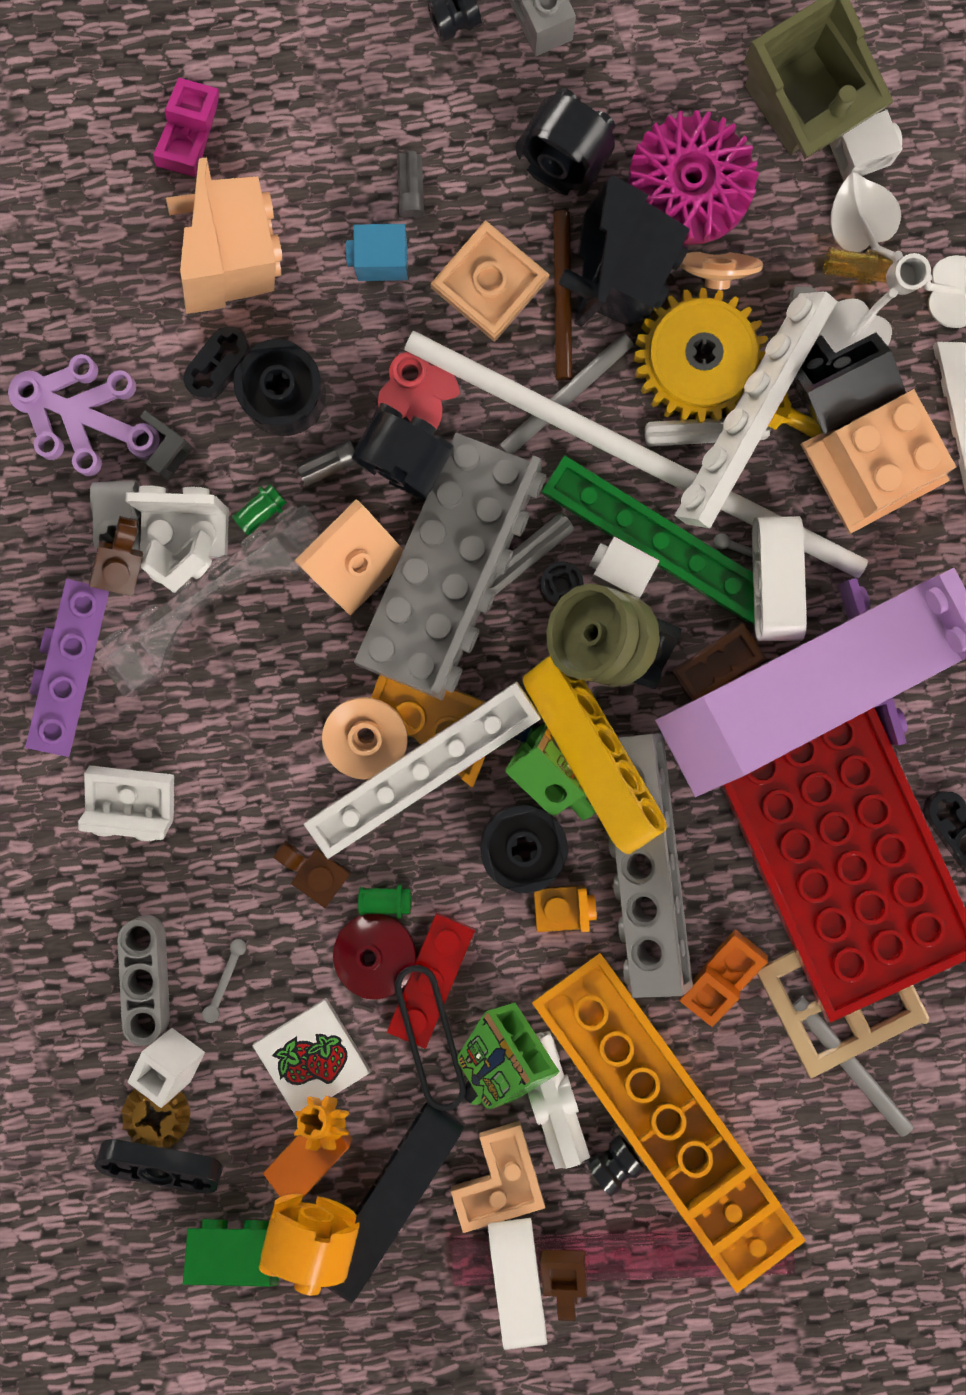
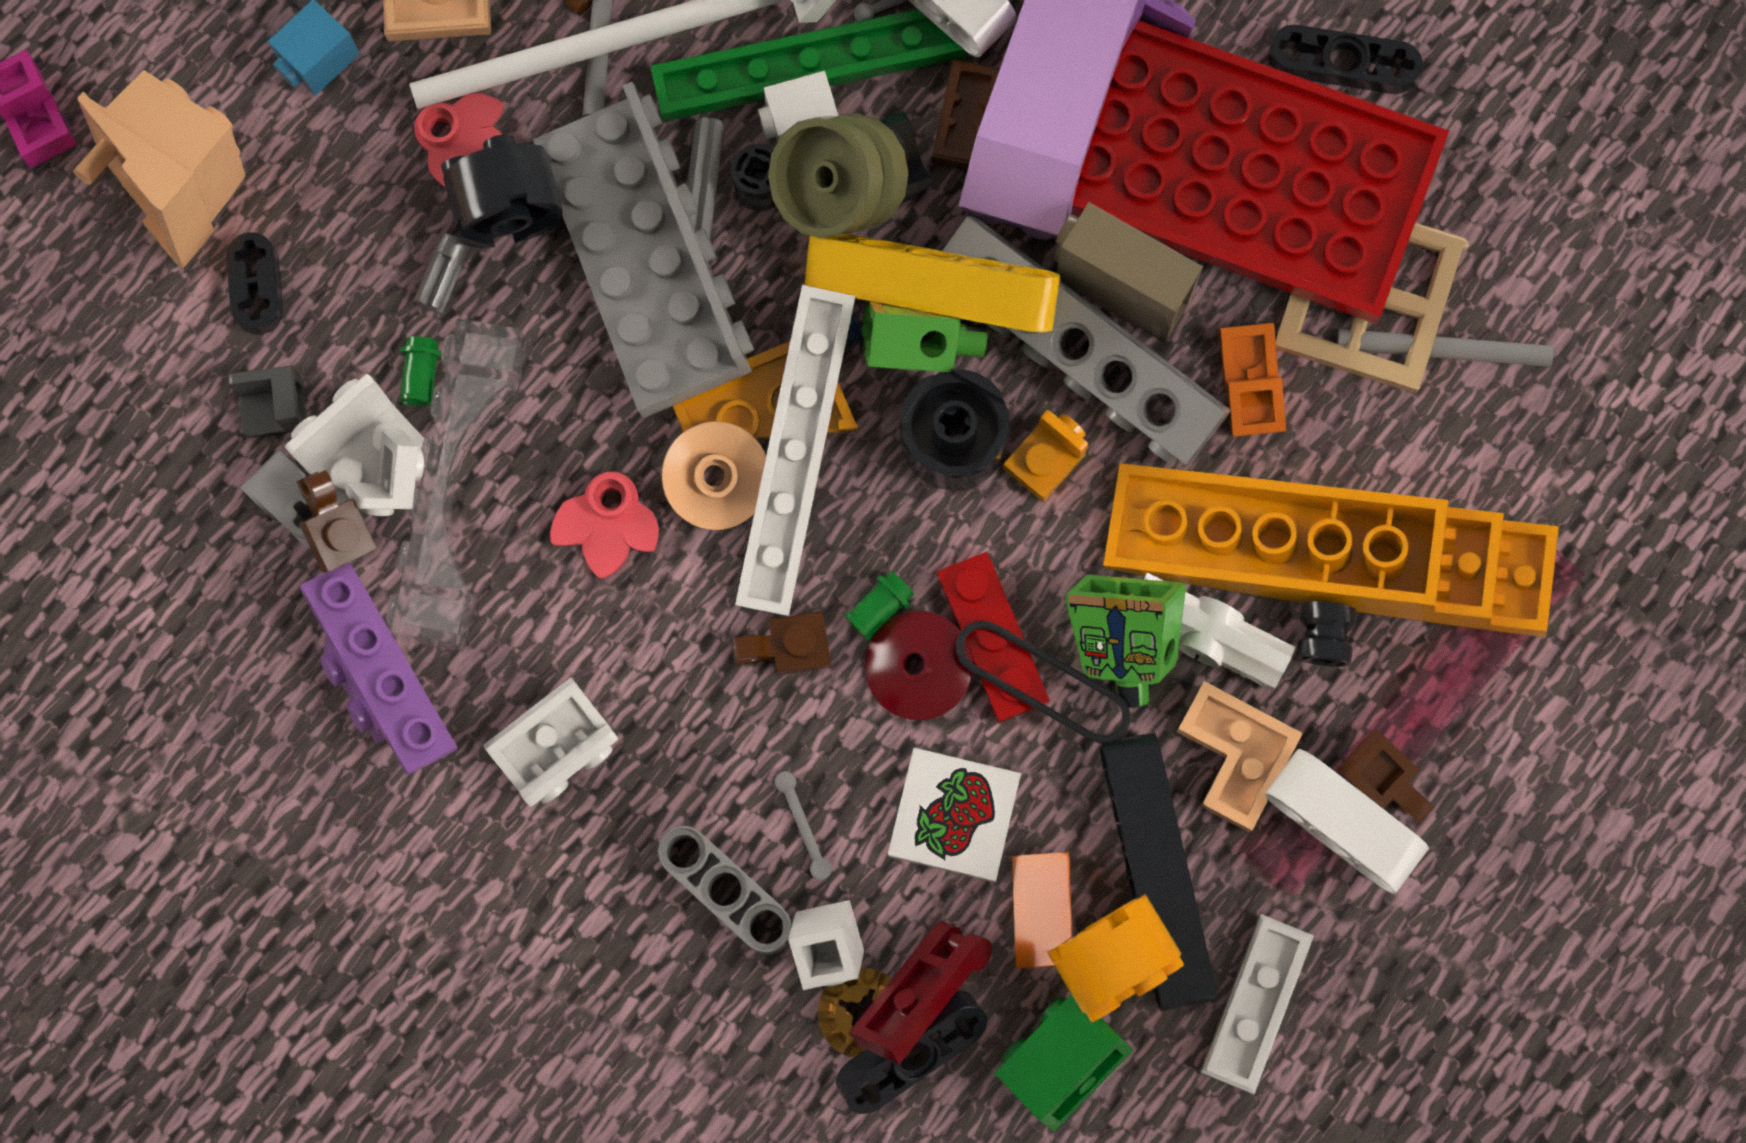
camera: 35 degrees left, 10 degrees down
(78, 412) = (166, 440): lavender plant -> none
(191, 1144) = (920, 991): none -> dark red plate
(260, 376) = (343, 215): black brick -> none
(274, 705) = (604, 531): none -> coral plate
(309, 1123) = (1020, 852): light orange gear -> none
(351, 557) = (546, 326): light nougat plate -> none
(372, 1322) = (1256, 1004): none -> white tile
(712, 855) = (1125, 270): none -> dark tan brick

